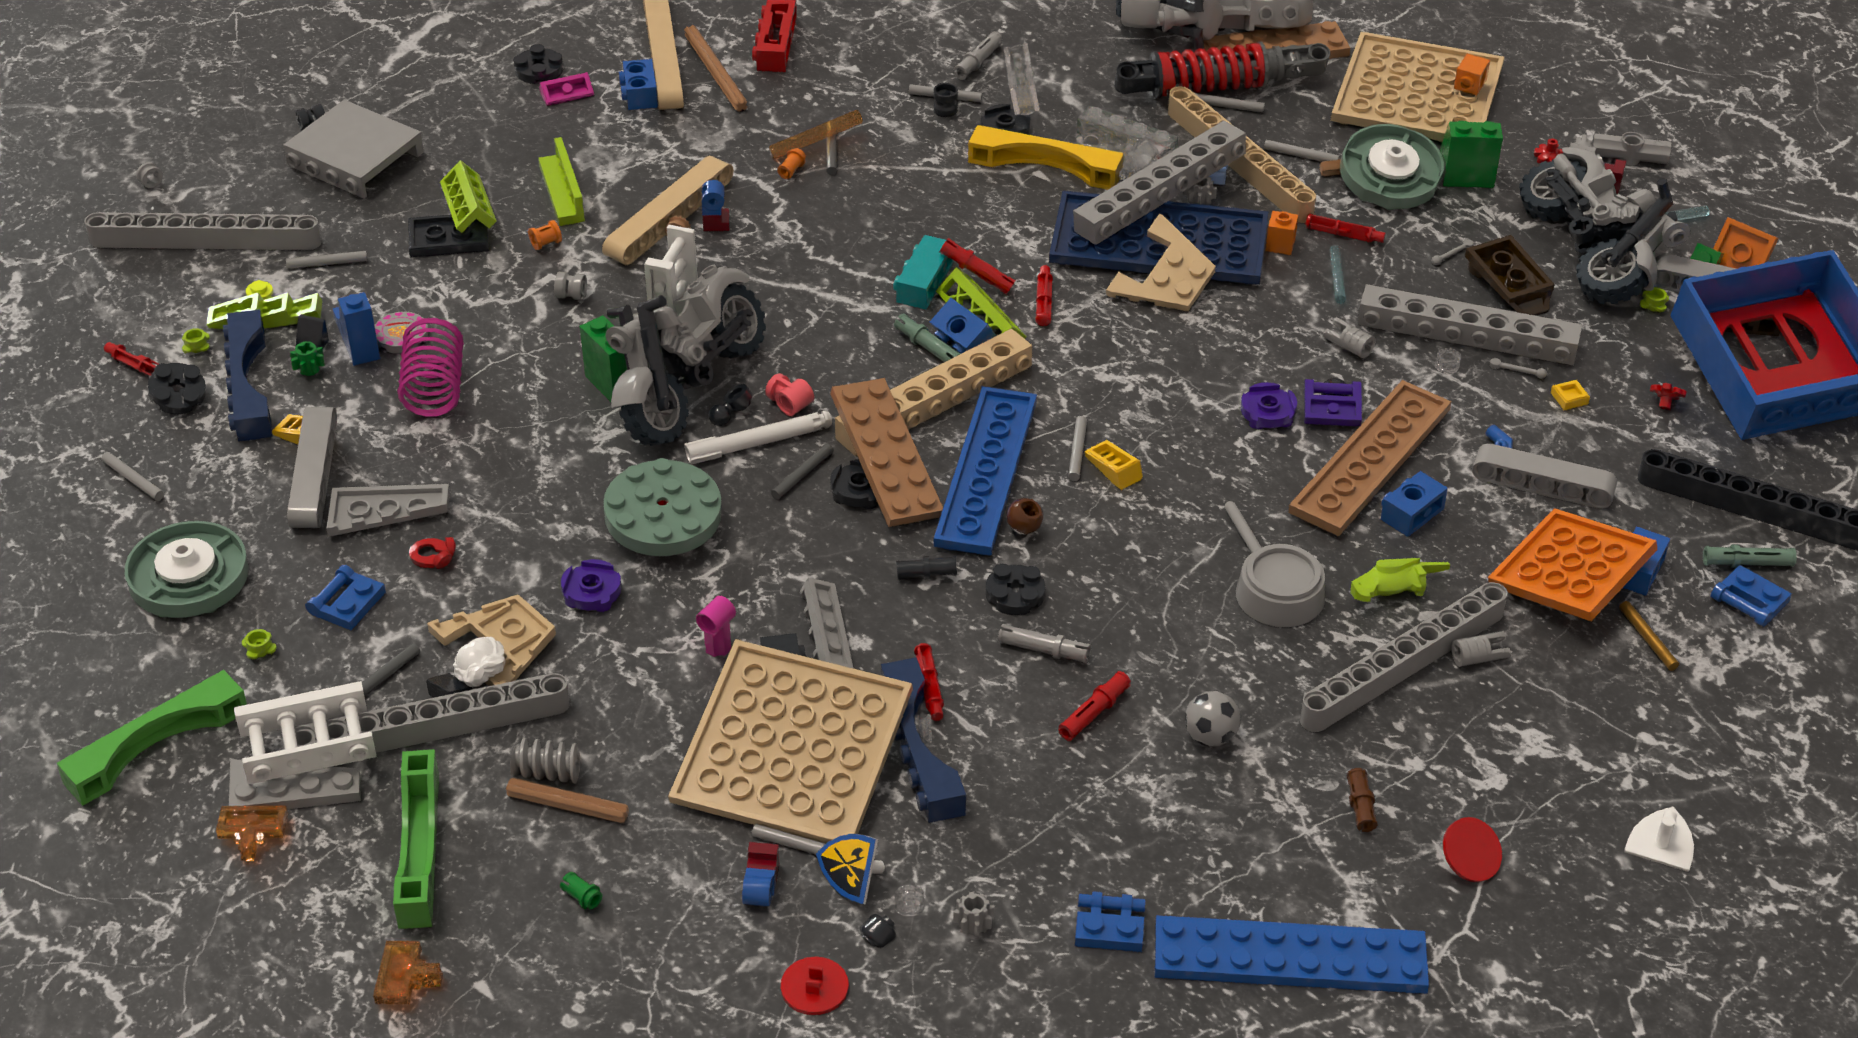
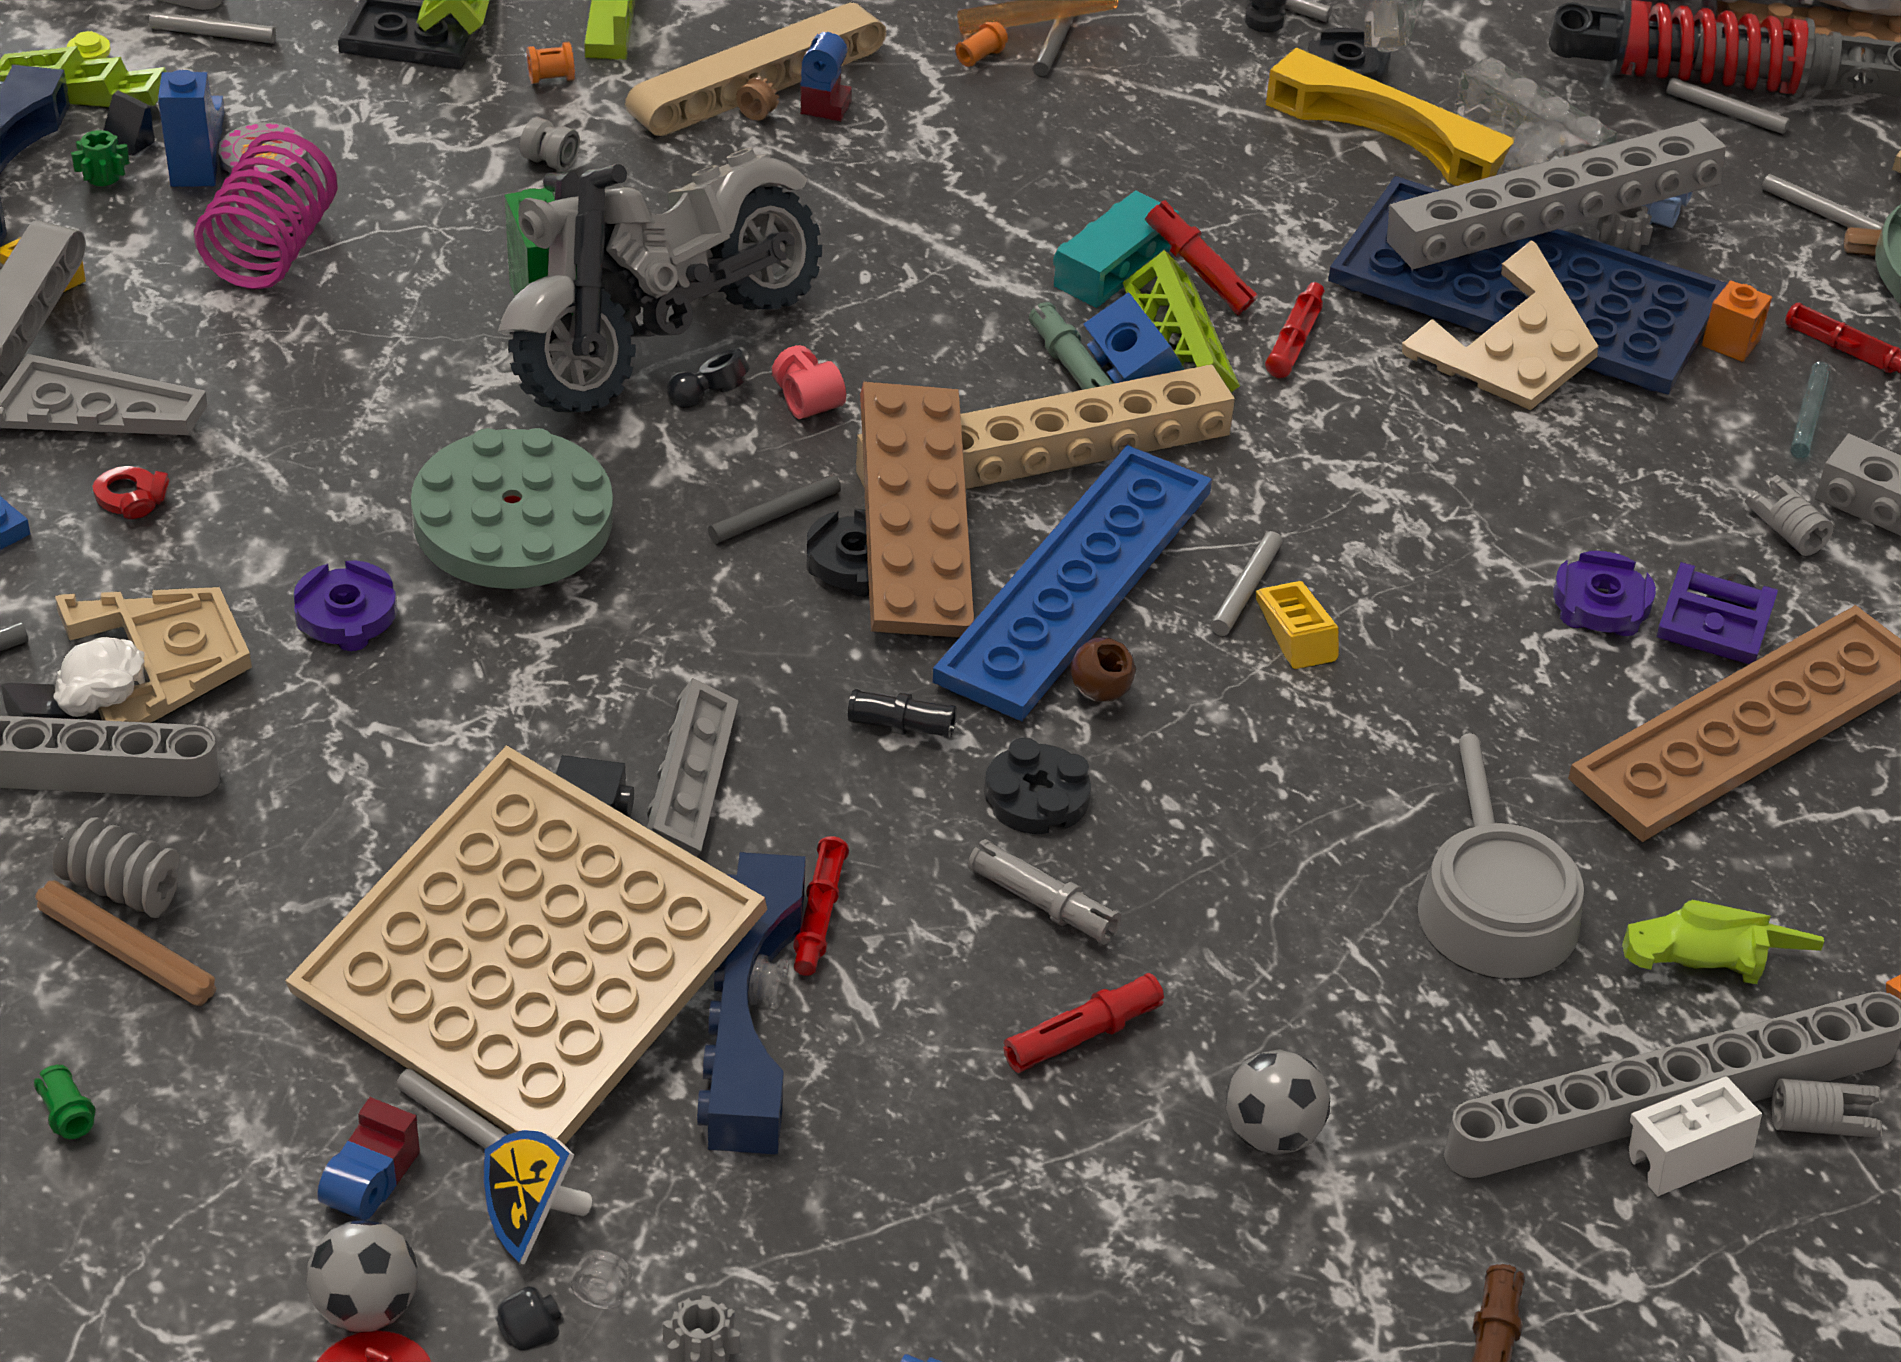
camera: 15 degrees right, 0 degrees up
(676, 270) = (654, 141): white fence -> none
(714, 447) = (656, 437): white piece -> none
(715, 623) = (499, 712): dark pink piece -> none
(789, 931) = (362, 1276): none -> light grey piece
(1255, 166) = (1735, 206): tan beam -> none
(1413, 503) = (1797, 819): blue brick -> none
(1422, 679) = (1694, 1134): none -> white hinge

